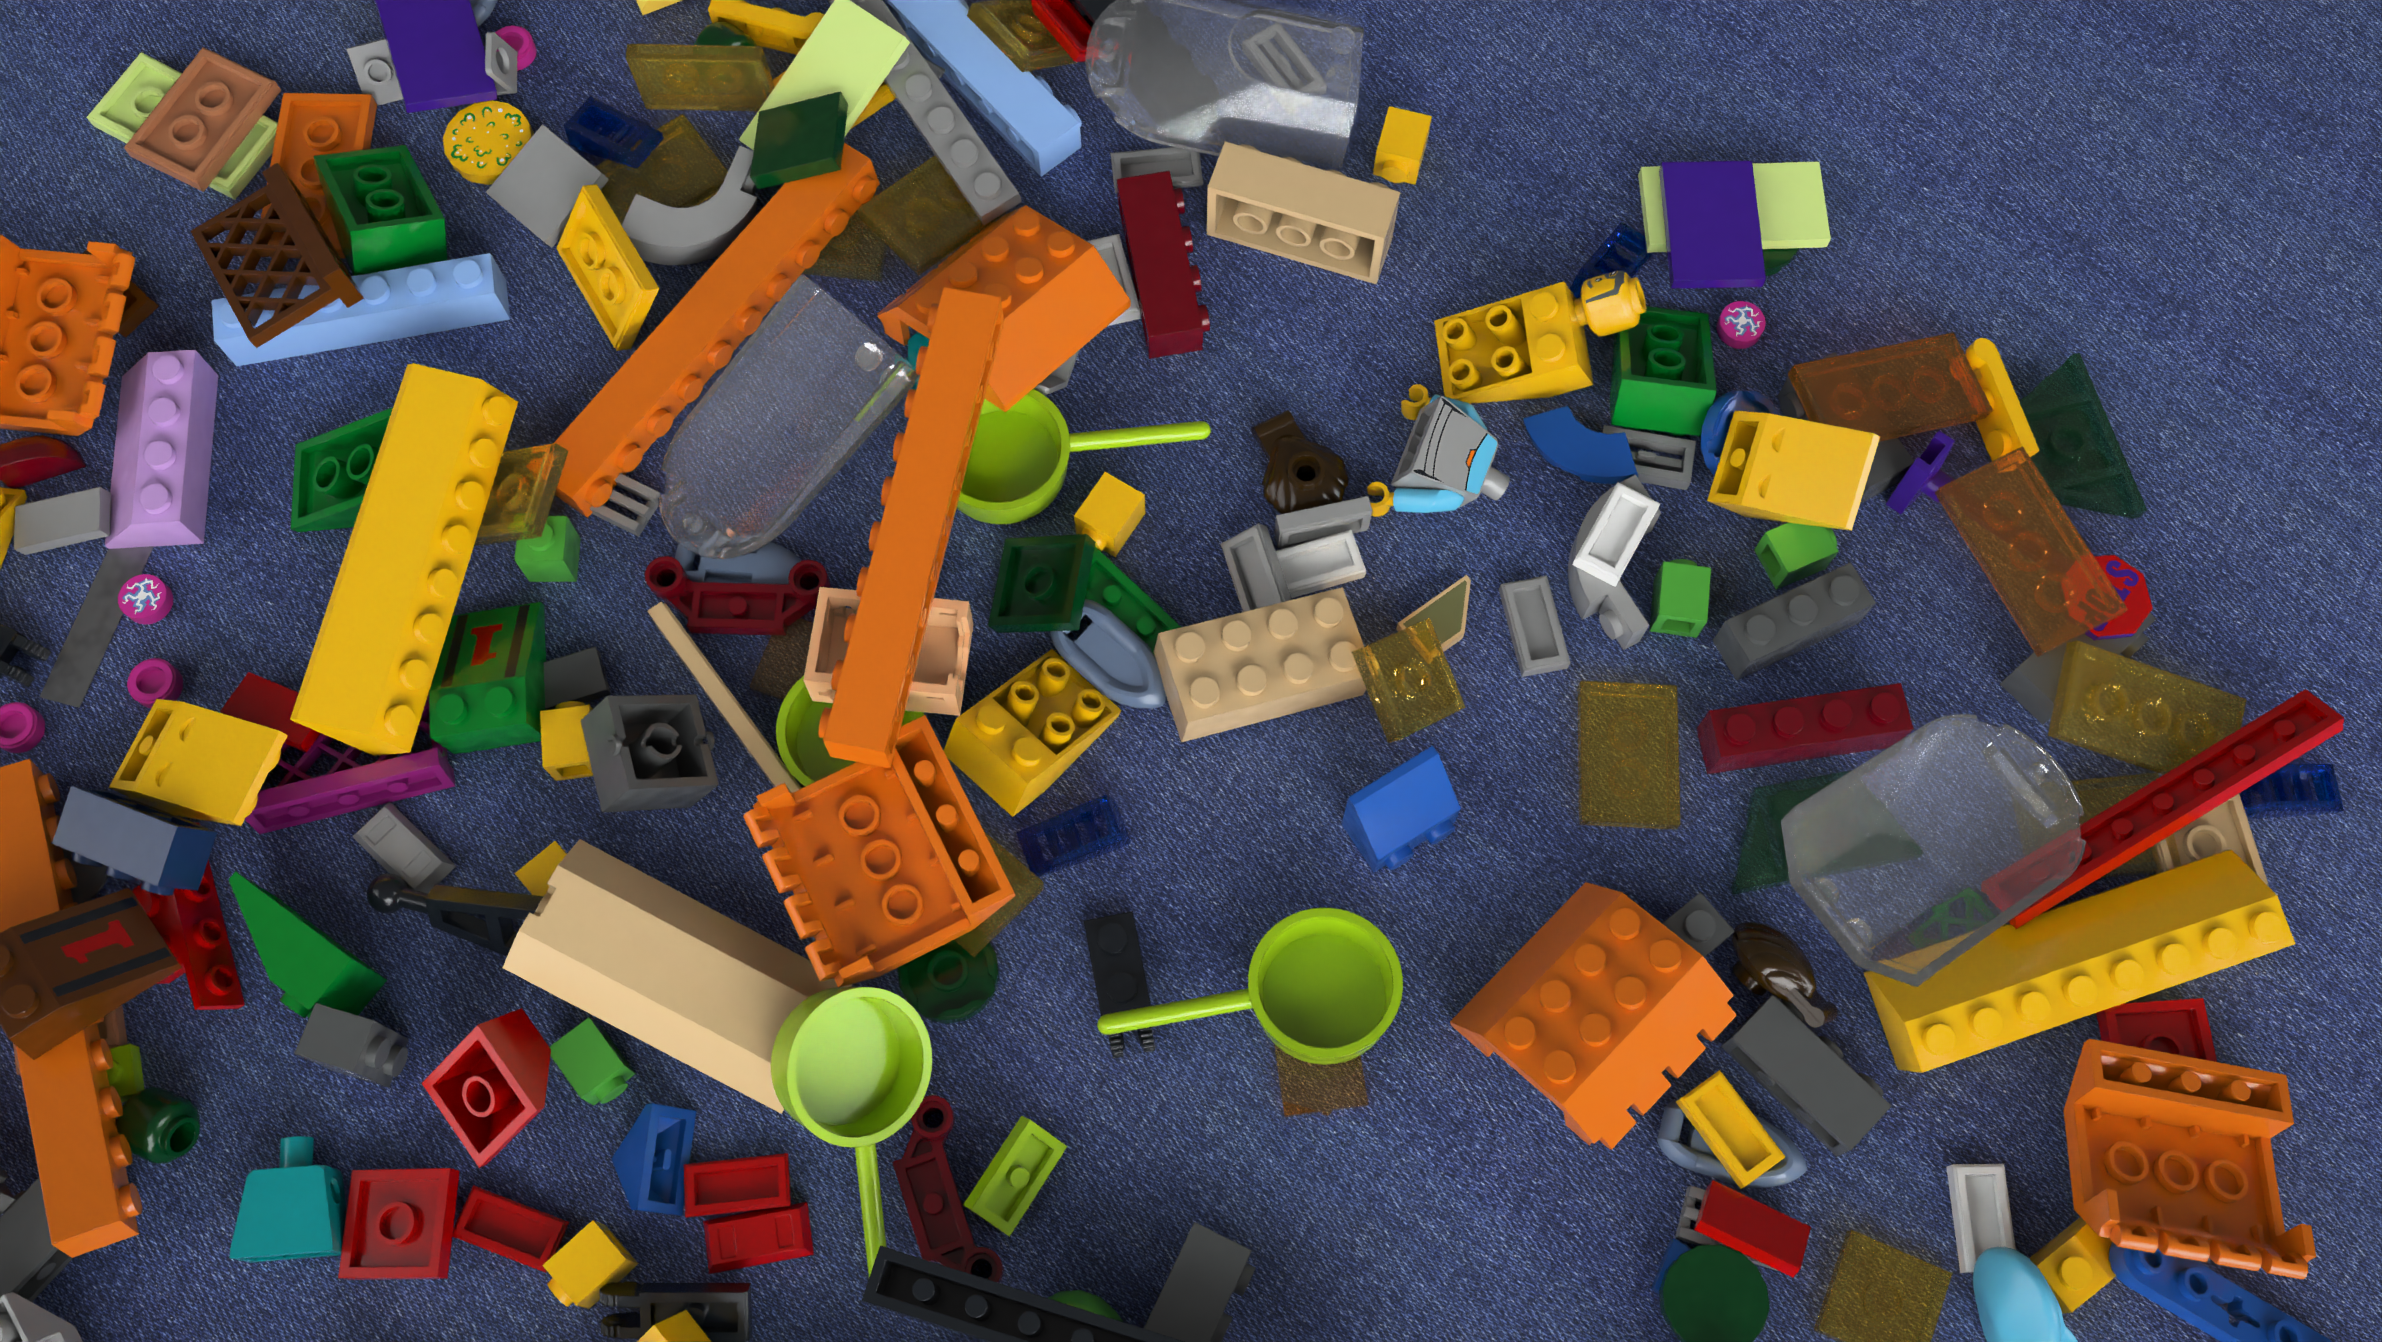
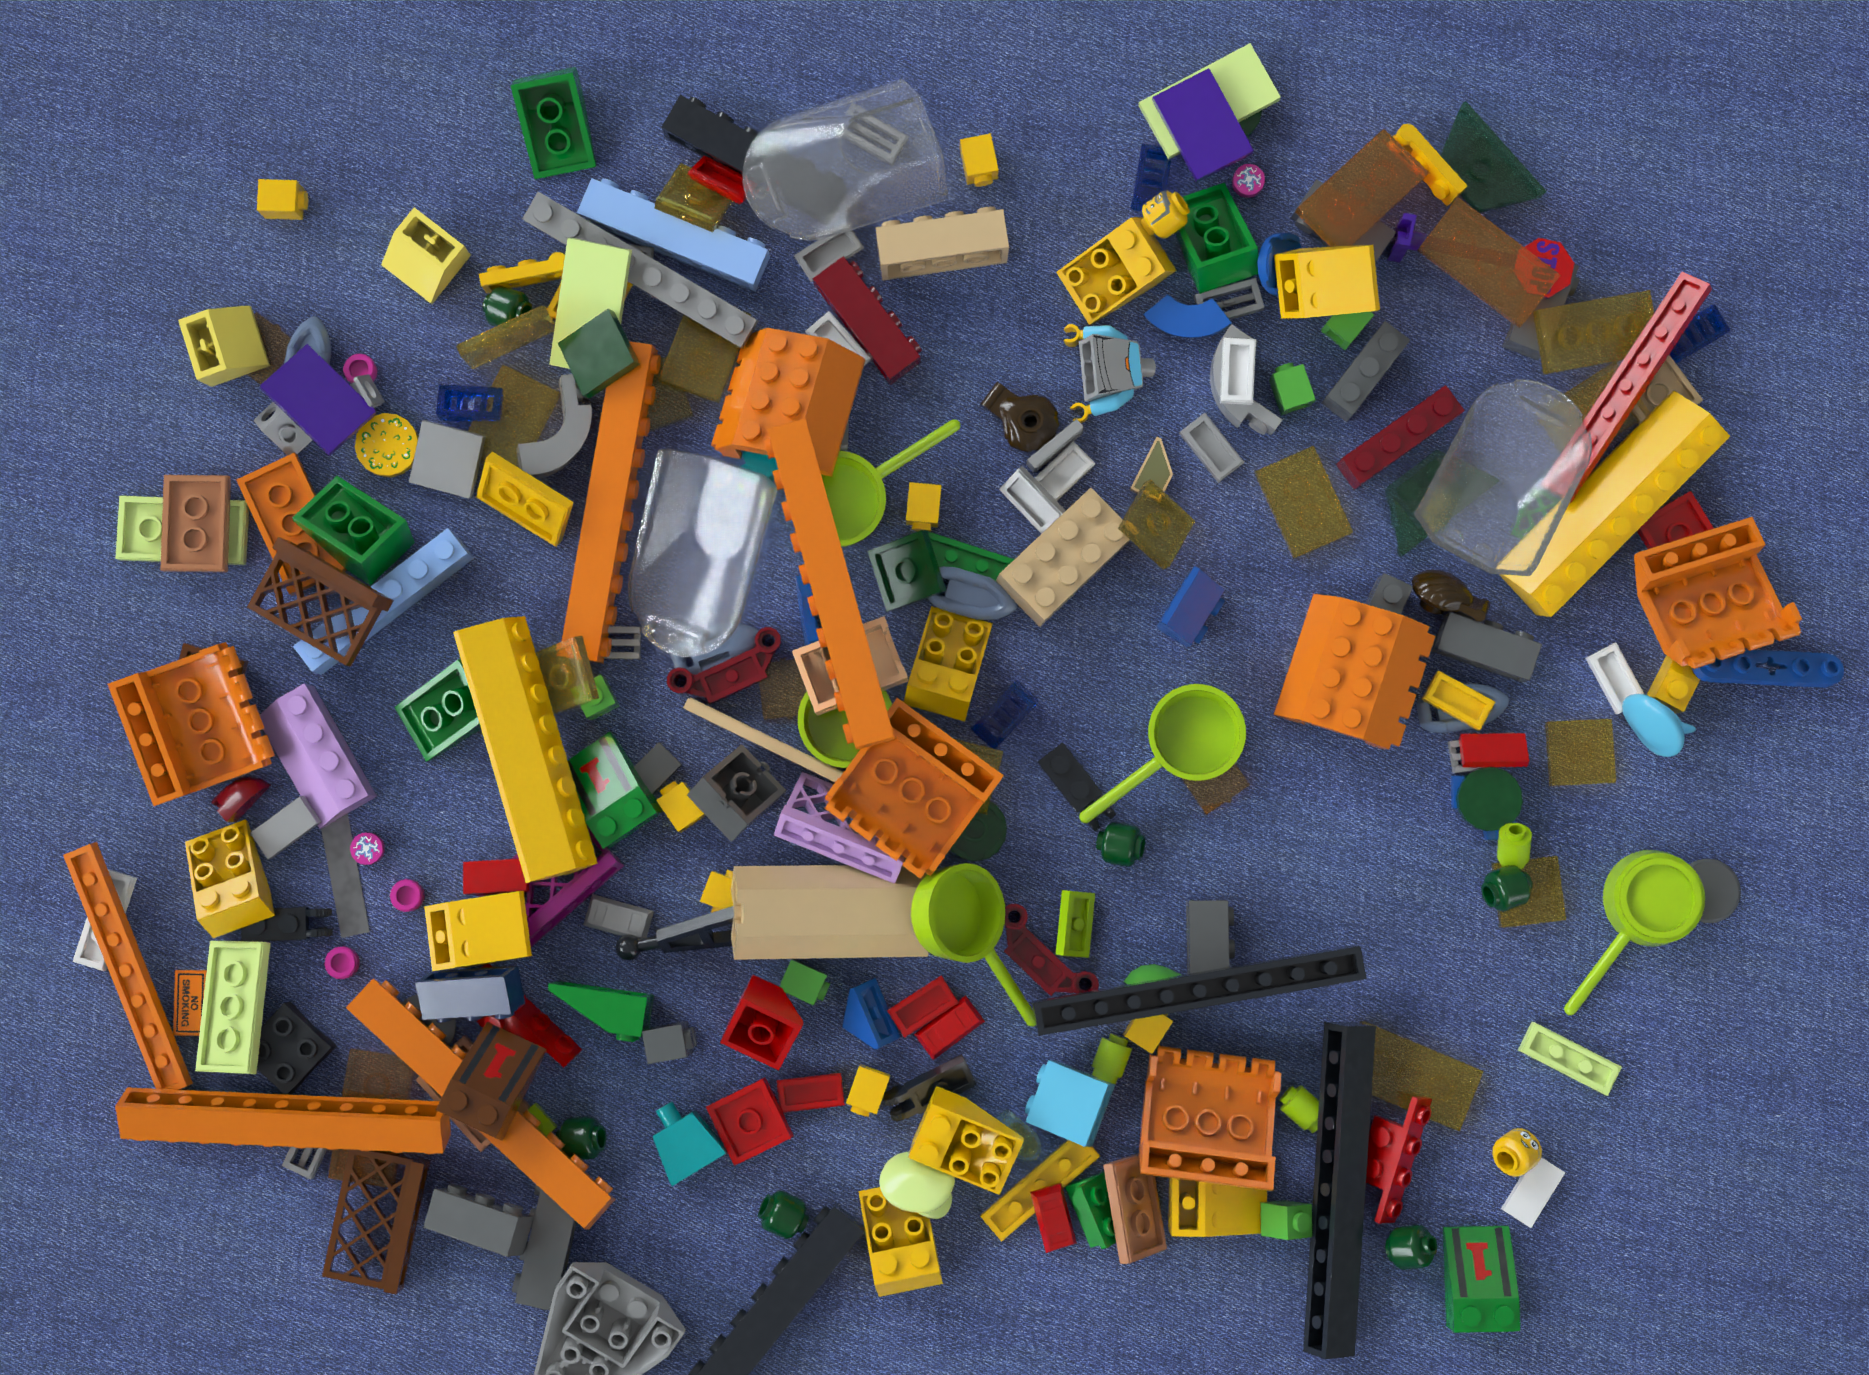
camera: 25 degrees left, 15 degrees up
(734, 875) = (829, 839): none -> lavender fence
(1140, 1093) = (1121, 844): none -> dark green head

